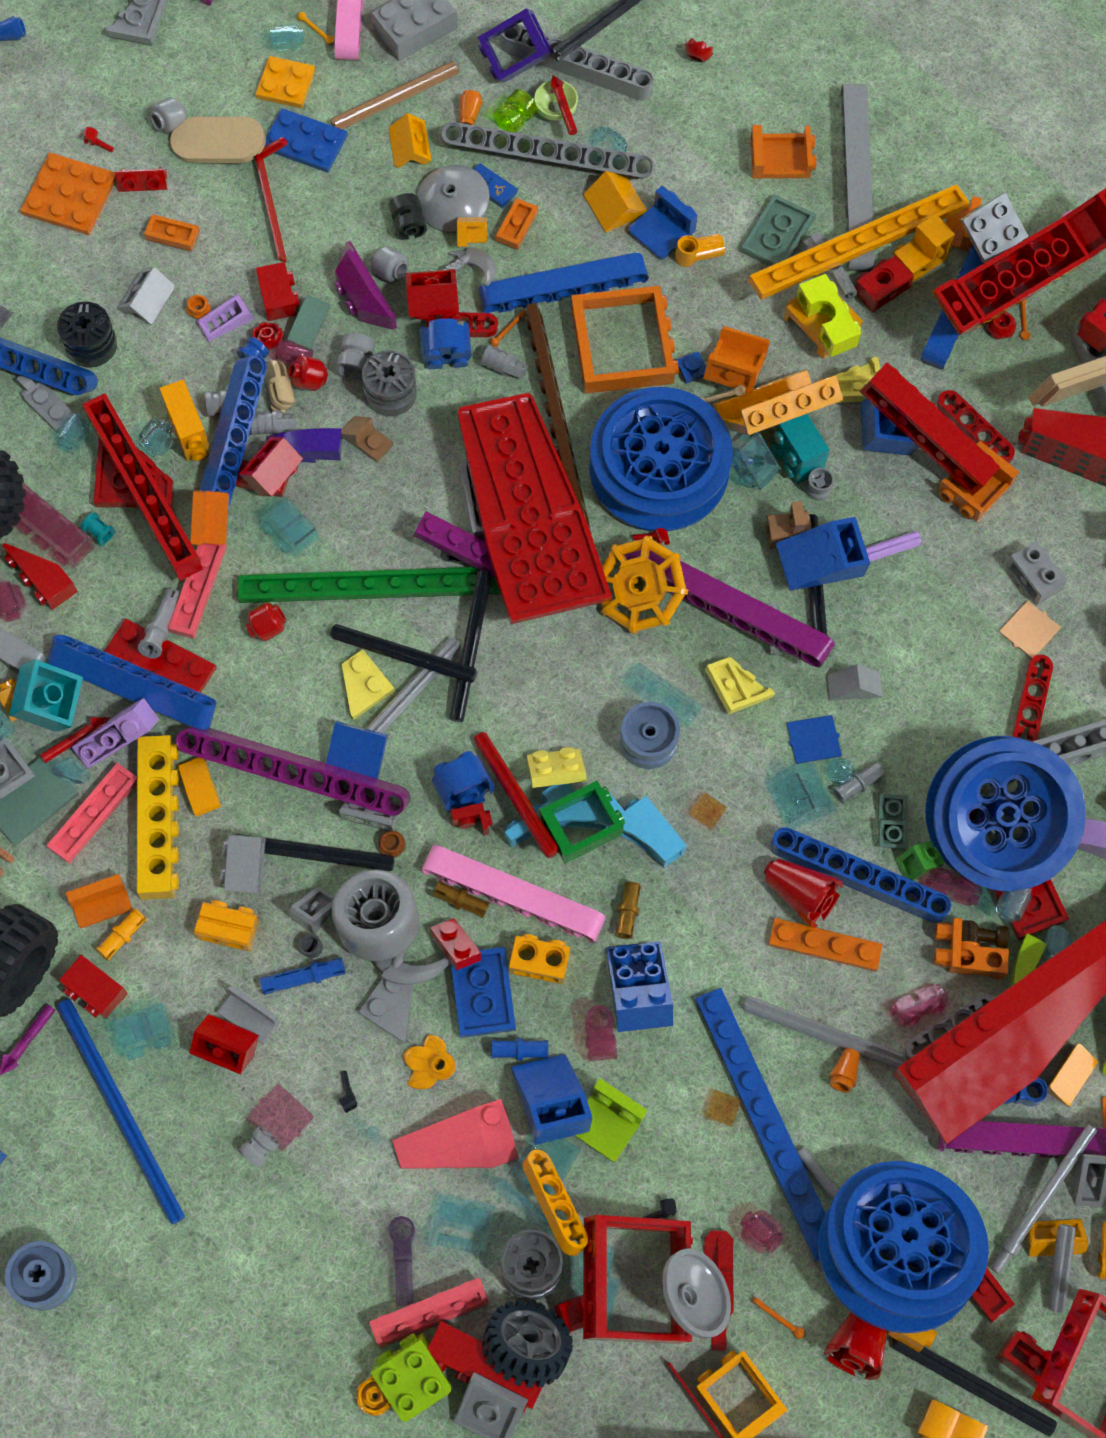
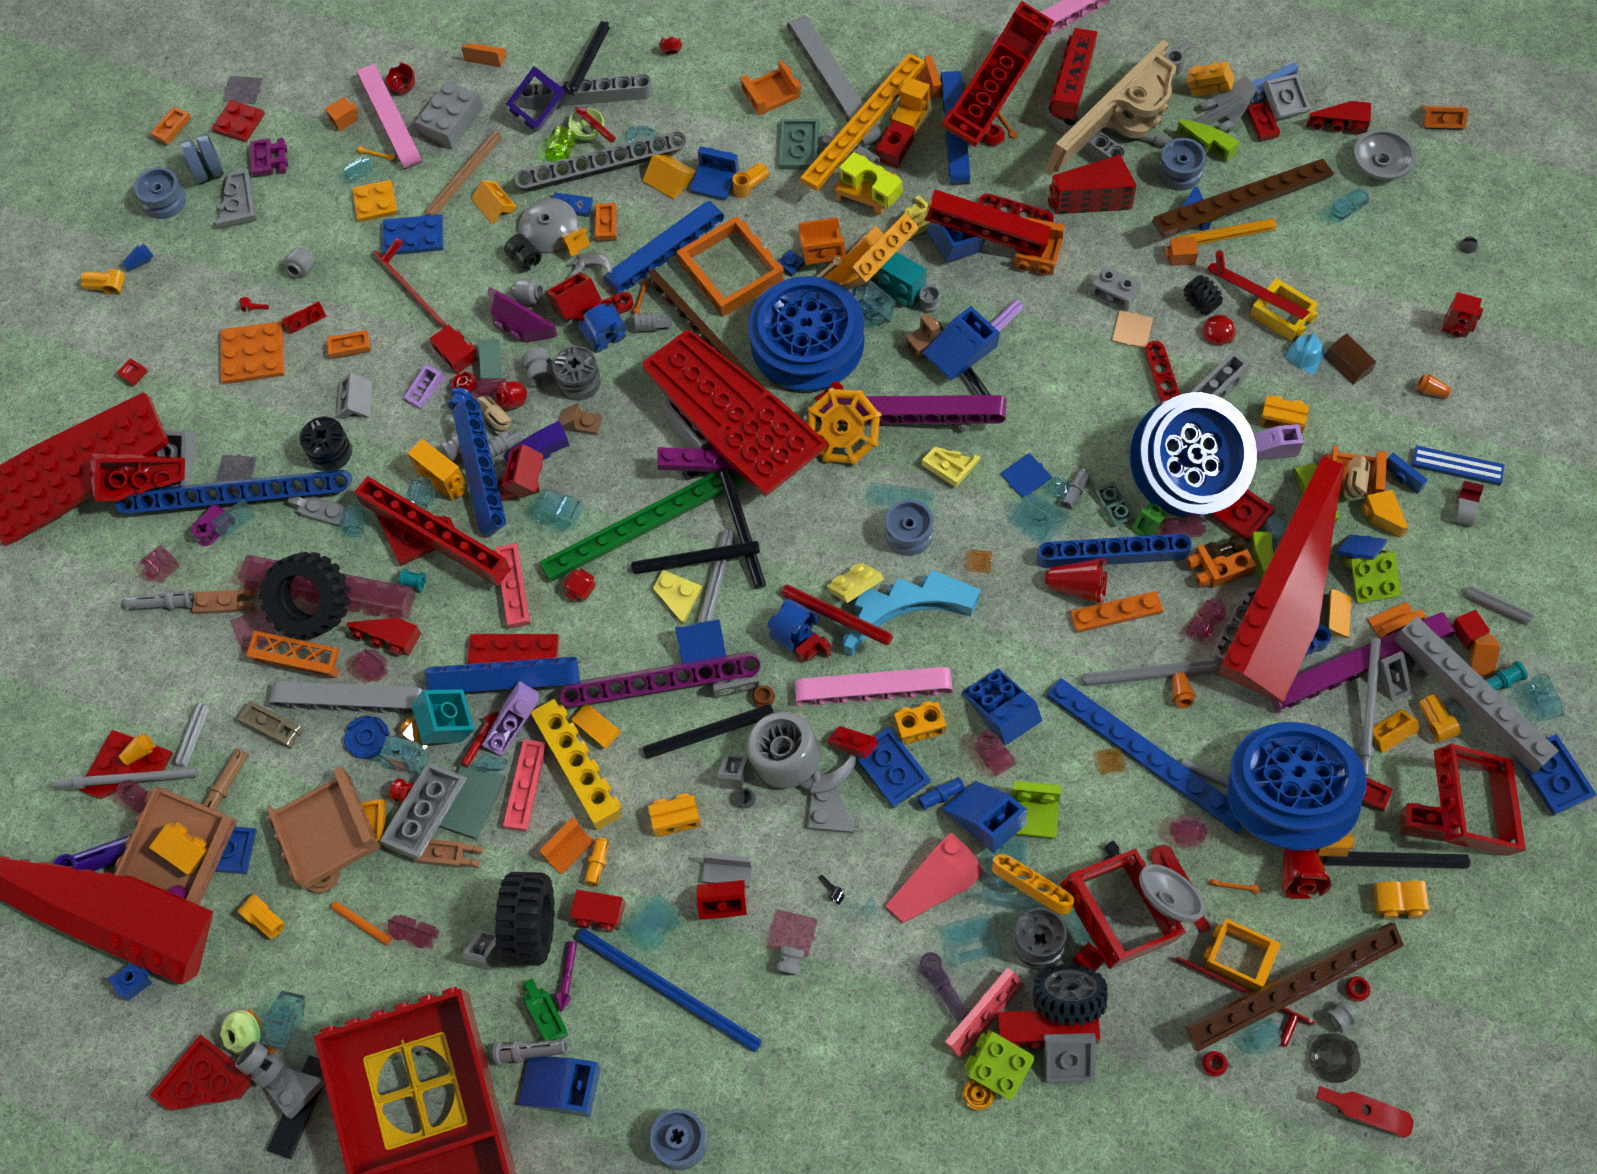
camera: 20 degrees left, 5 degrees down
(157, 631) = (501, 629): light grey pin -> none
(194, 302) = (398, 382): orange plate -> none
(209, 517) = (497, 528): orange panel -> none
(218, 139) = (347, 262): tan tile -> none
(243, 863) = (662, 763): light grey brick -> none
(313, 973) = (755, 819): blue pin -> none
(425, 1061) = (877, 837): light orange plate -> none
(461, 899) = (837, 710): pearl gold pin -> none
(470, 105) = (524, 156): orange cone -> none
(551, 823) = (918, 593): green window -> none
(628, 910) = (963, 657): pearl gold pin -> none
(854, 683) = (1032, 423): light grey slope -> none
(994, 227) = (955, 67): light grey plate -> none
(1013, 904) = (1232, 517): clear light blue brick -> none
(1061, 1268) = (1410, 747): light grey axle -> none

